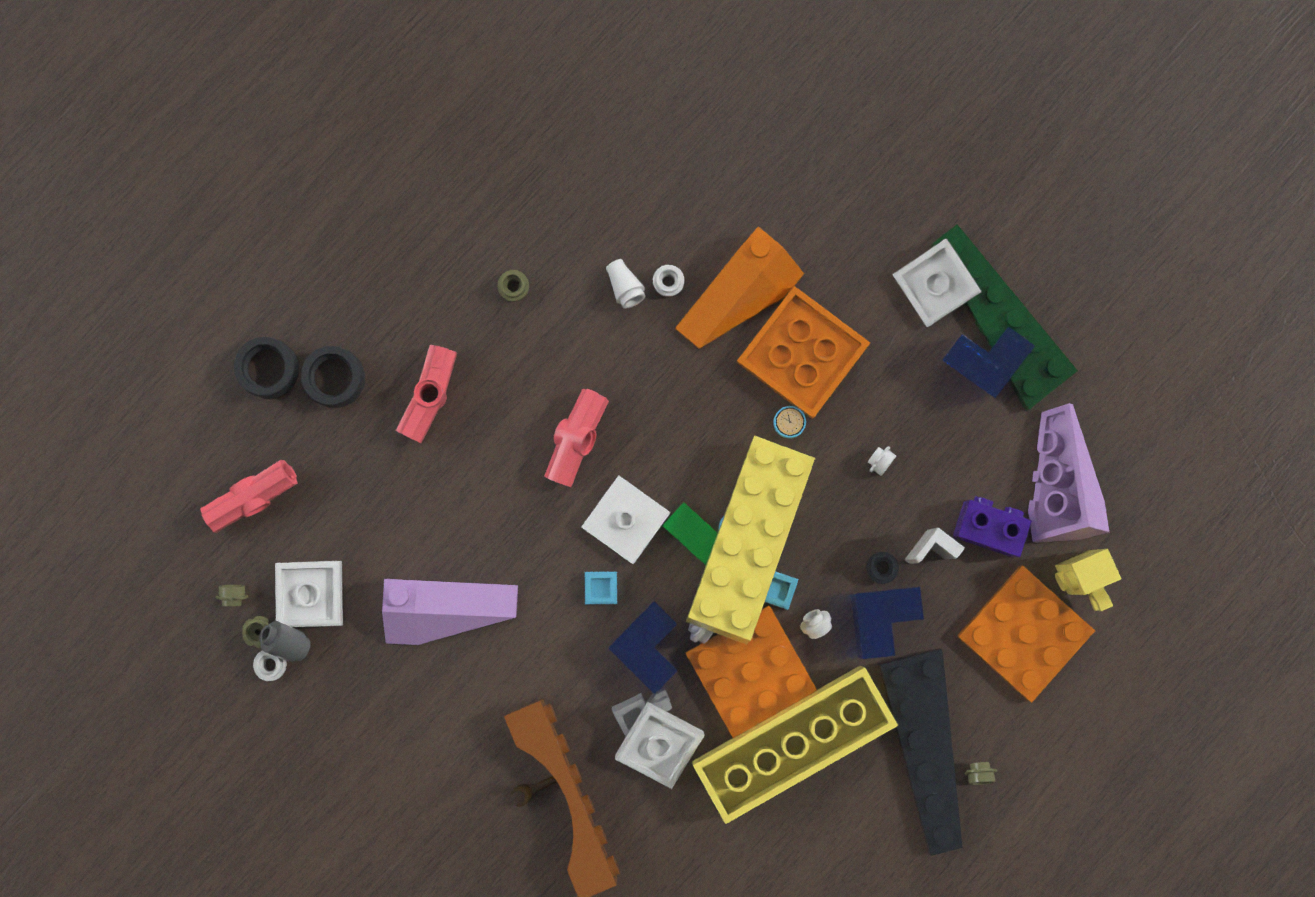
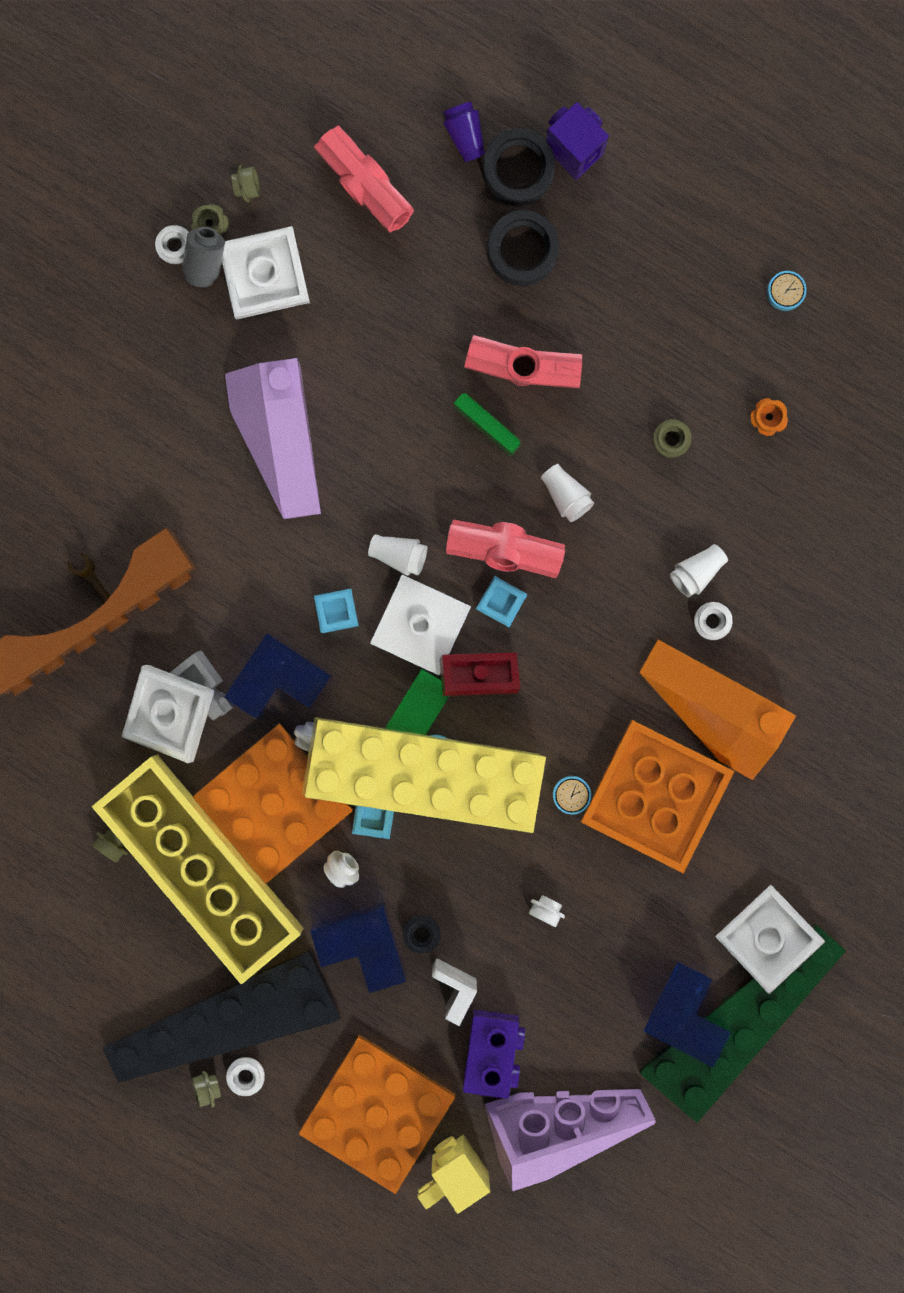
camera: 75 degrees right, 5 degrees up
(225, 405) = (465, 130): none -> dark purple cone
(252, 315) = (576, 138): none -> dark purple brick
(412, 172) = (786, 290): none -> tile
(471, 433) = (487, 424): none -> green tile
(517, 198) = (779, 414): none -> orange plate
(542, 378) = (568, 495): none -> white cone
(563, 525) = (399, 553): none -> white cone
(619, 449) = (501, 601): none -> medium azure tile
(675, 478) = (479, 674): none -> dark red plate
(761, 816) = (109, 845): none -> olive plate
(985, 738) = (245, 1088): none -> white plate

